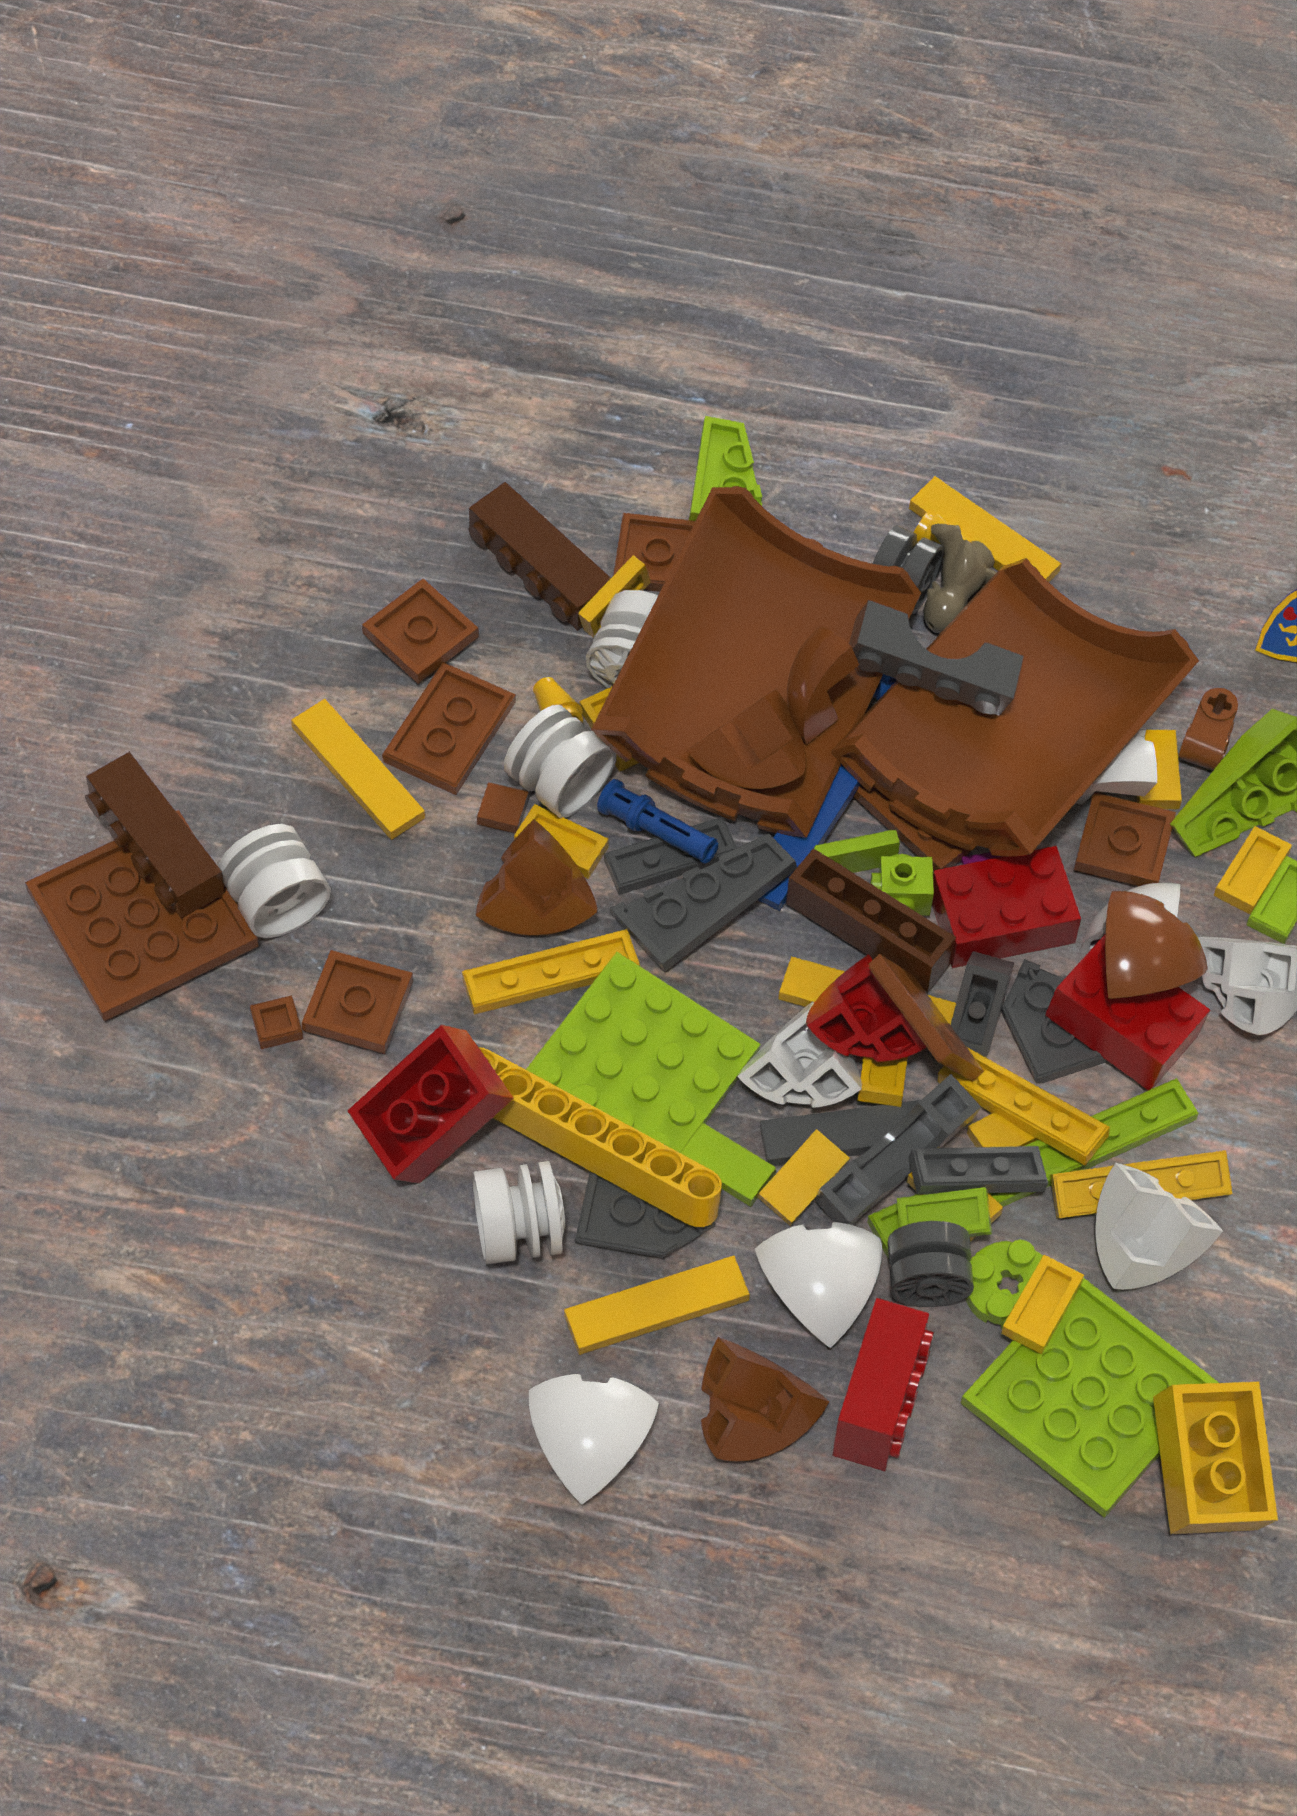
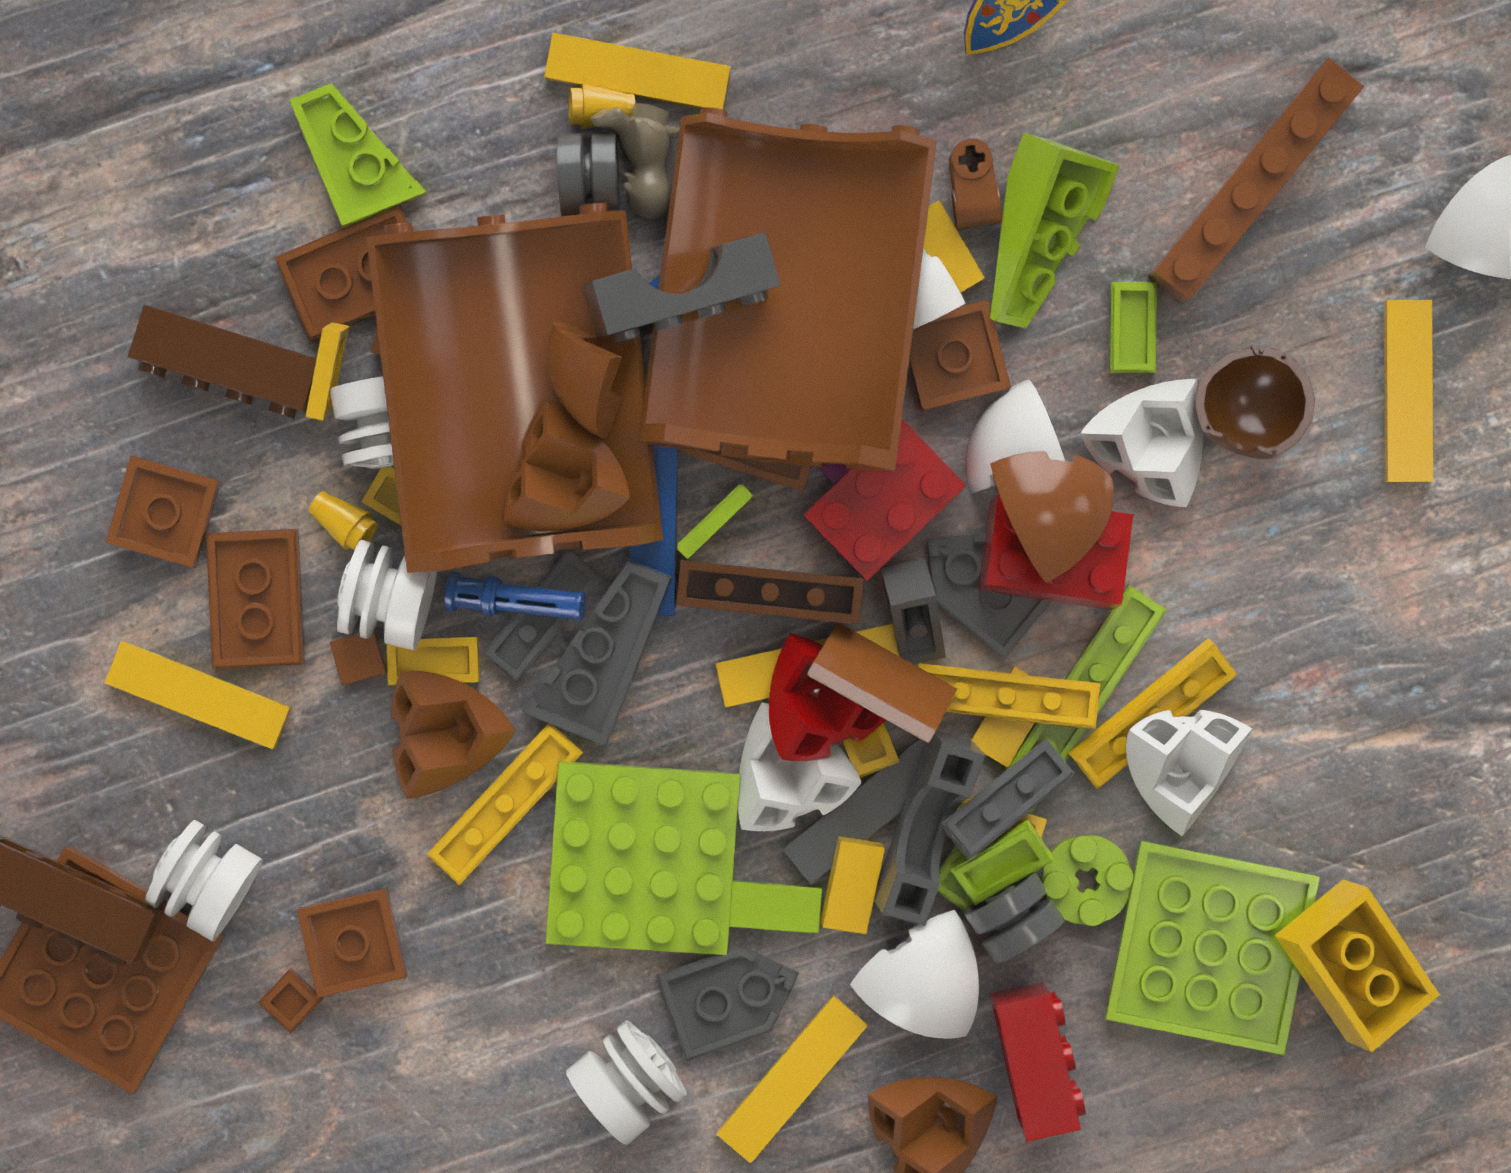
camera: 30 degrees left, 30 degrees up
(430, 1104) = (490, 1031): red brick -> none
(607, 1146) = (620, 960): yellow beam -> none
(907, 881) = (791, 521): lime brick -> none
(1042, 1304) = (1131, 896): yellow tile -> none
(1252, 870) = (1087, 313): yellow tile -> none

